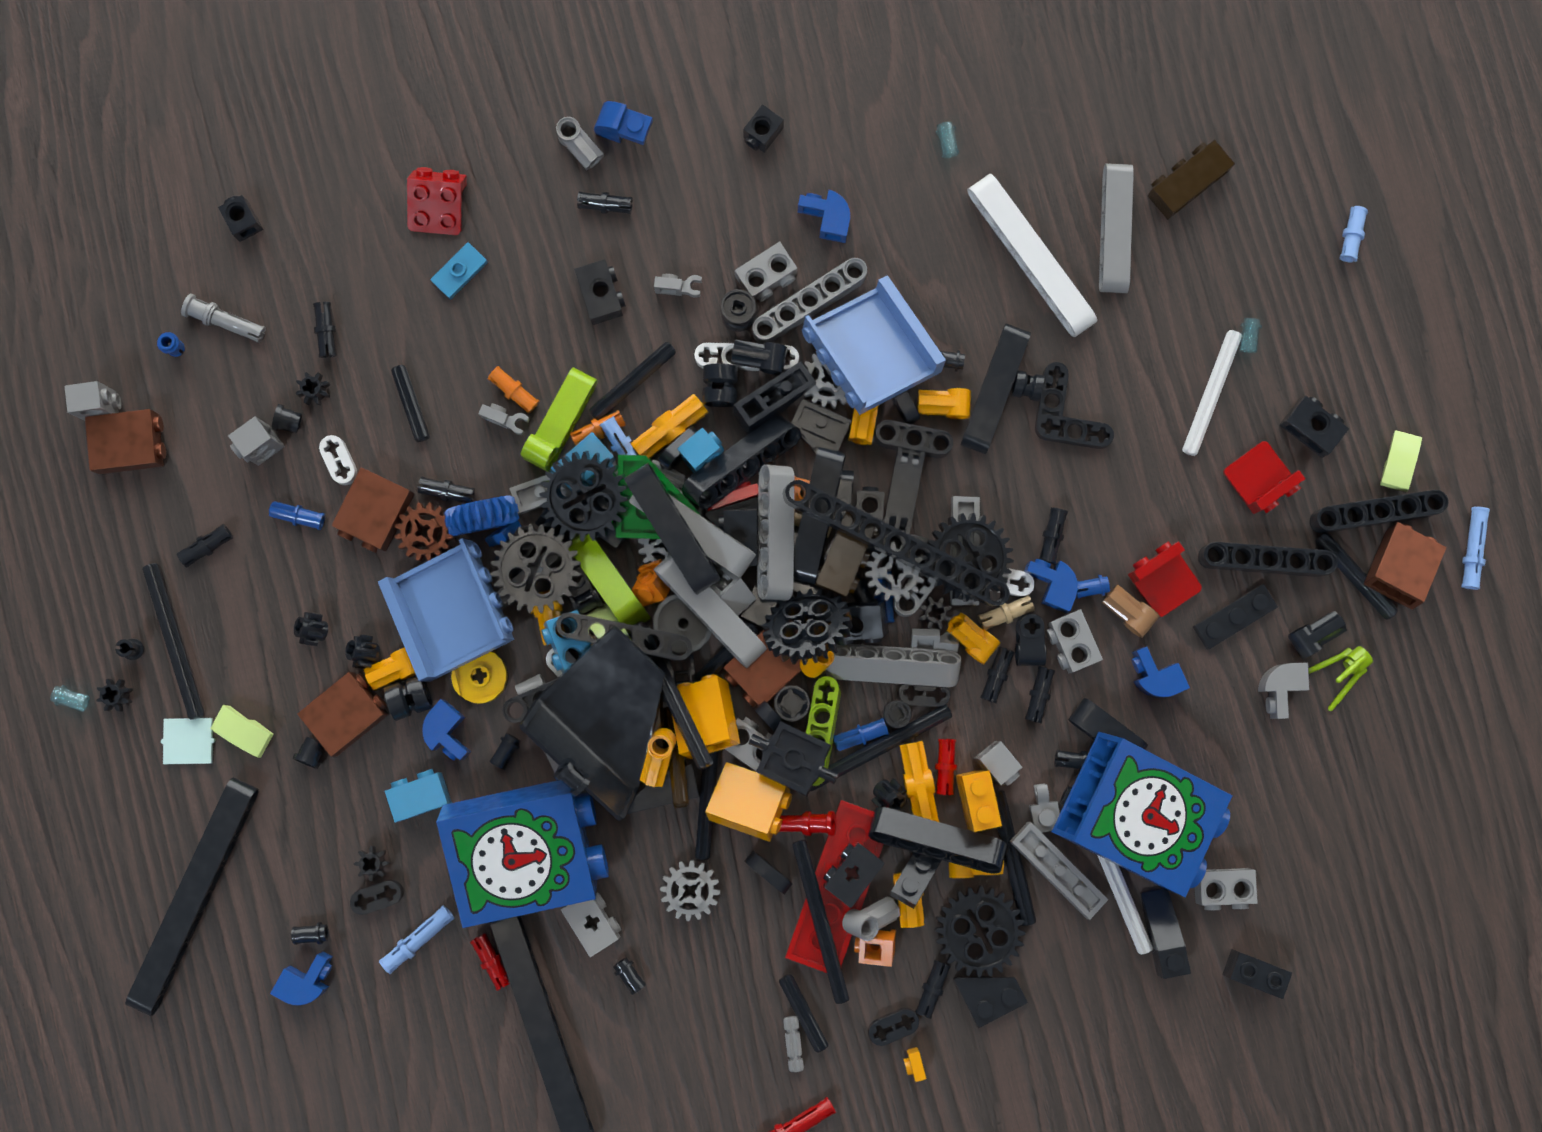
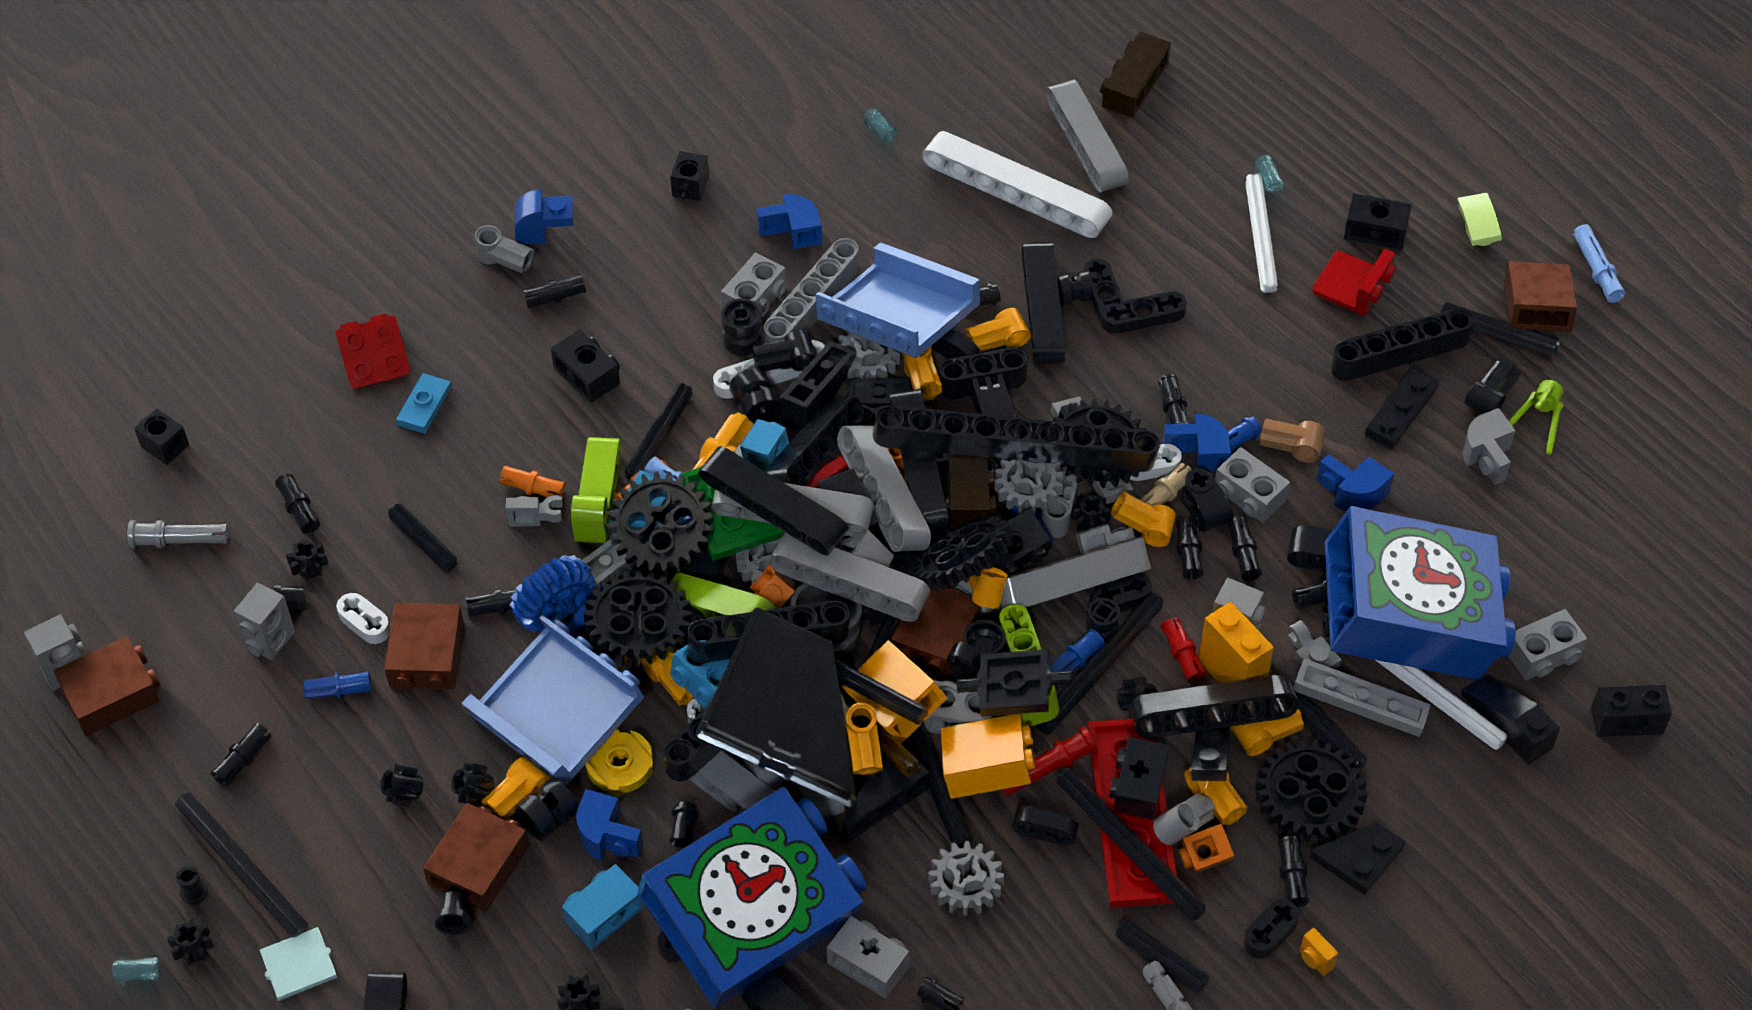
camera: 20 degrees left, 30 degrees down
(175, 346) = (126, 570): blue pin -> none
(241, 732) = (361, 920): yellowish green slope -> none
(414, 538) = (492, 644): copper gear -> none
(671, 285) = (662, 333): light grey plate -> none
(918, 780) = (1151, 662): light orange piece -> none
(1165, 579) = (1307, 396): red bracket -> none
(1353, 234) = (1317, 64): light blue pin -> none
(1391, 511) = (1483, 266): black beam -> none

